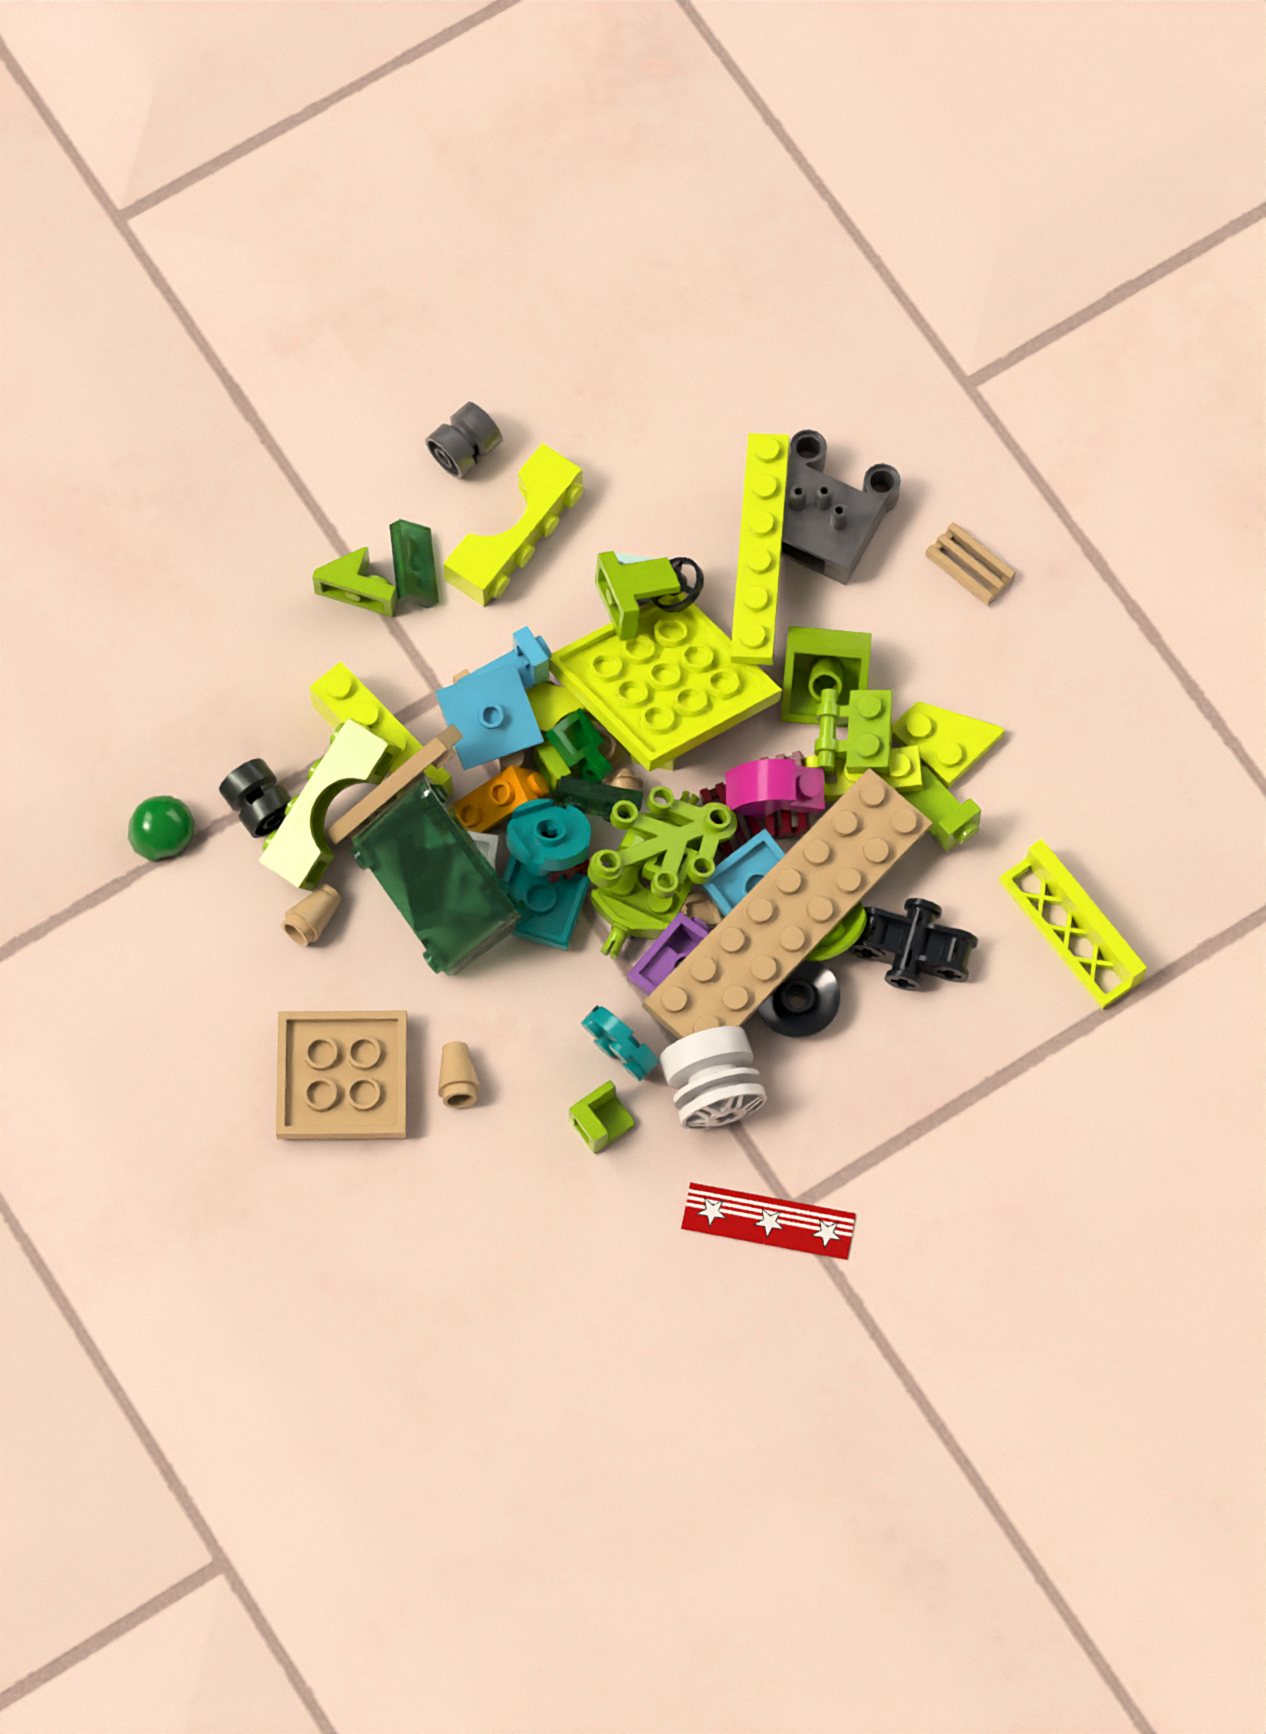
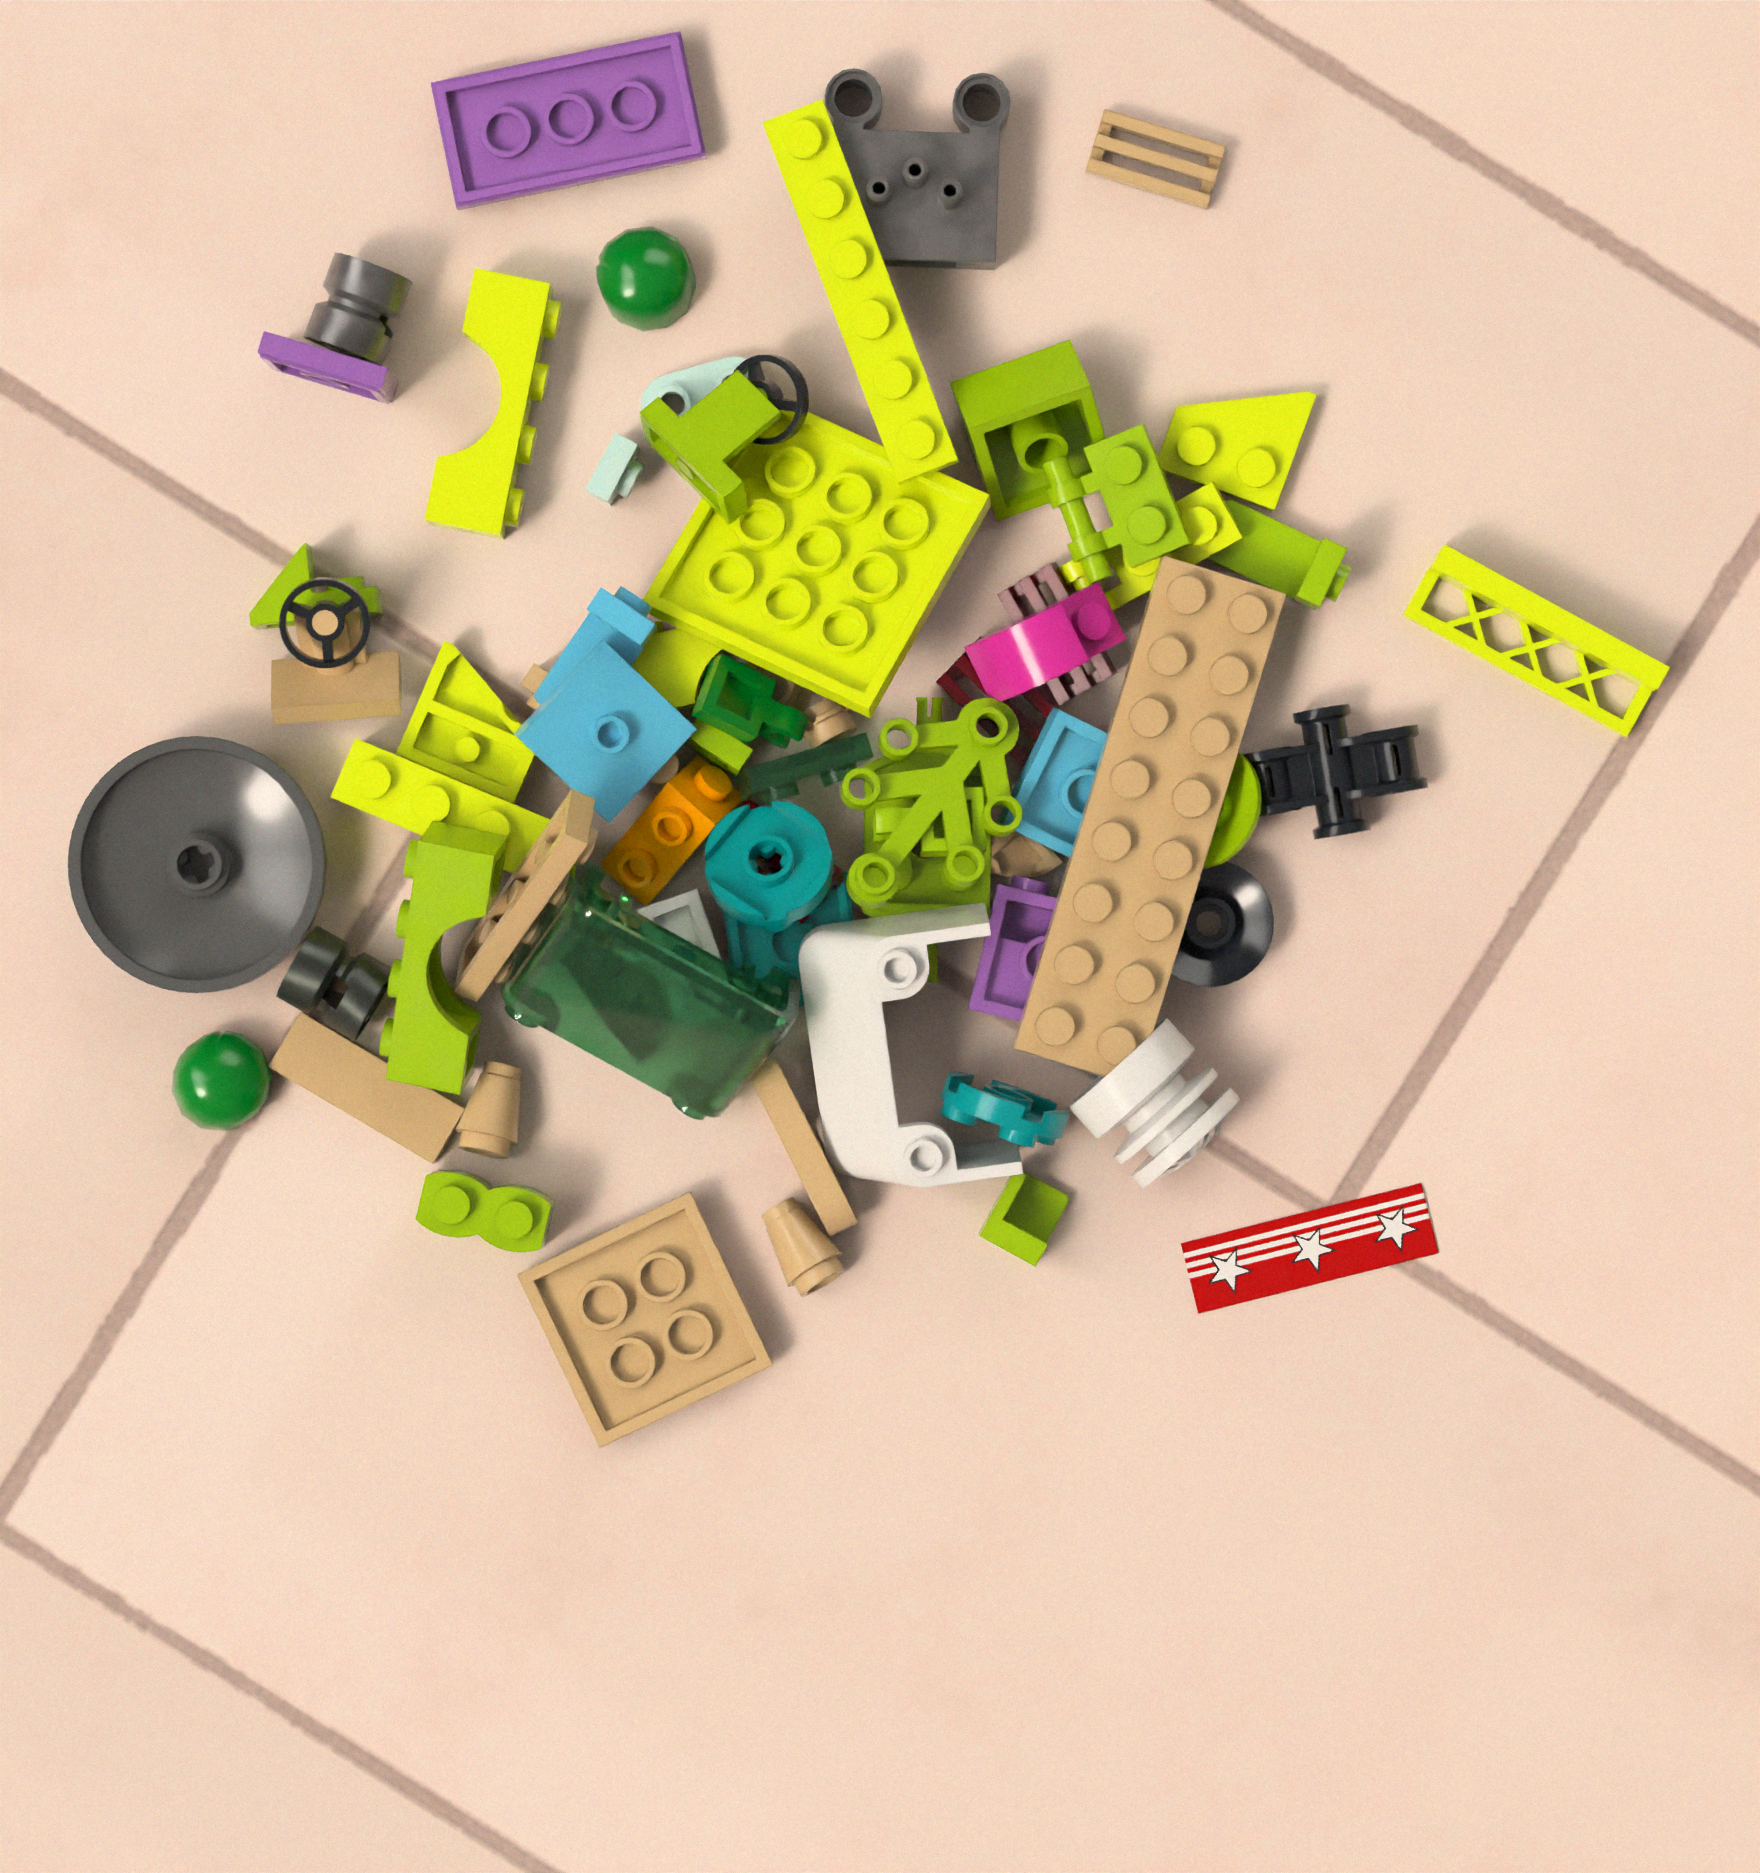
camera: 20 degrees left, 20 degrees up
(211, 694) = (197, 864): none -> dark grey dish
(240, 867) = (358, 1086): none -> tan tile
(284, 968) = (467, 1205): none -> lime brick
(350, 626) = (332, 669): none -> tan piece
(409, 693) = (466, 730): none -> neon yellow wing
(413, 563) = (378, 529): clear green plate -> none
(430, 458) = (328, 368): none -> medium lavender tile
(487, 1017) = (803, 1147): none -> tan beam
(527, 1018) = (844, 980): none -> white windscreen
(568, 591) = (616, 471): none -> light aqua plate
(637, 396) = (568, 120): none -> medium lavender plate
(639, 499) = (646, 278): none -> green hair

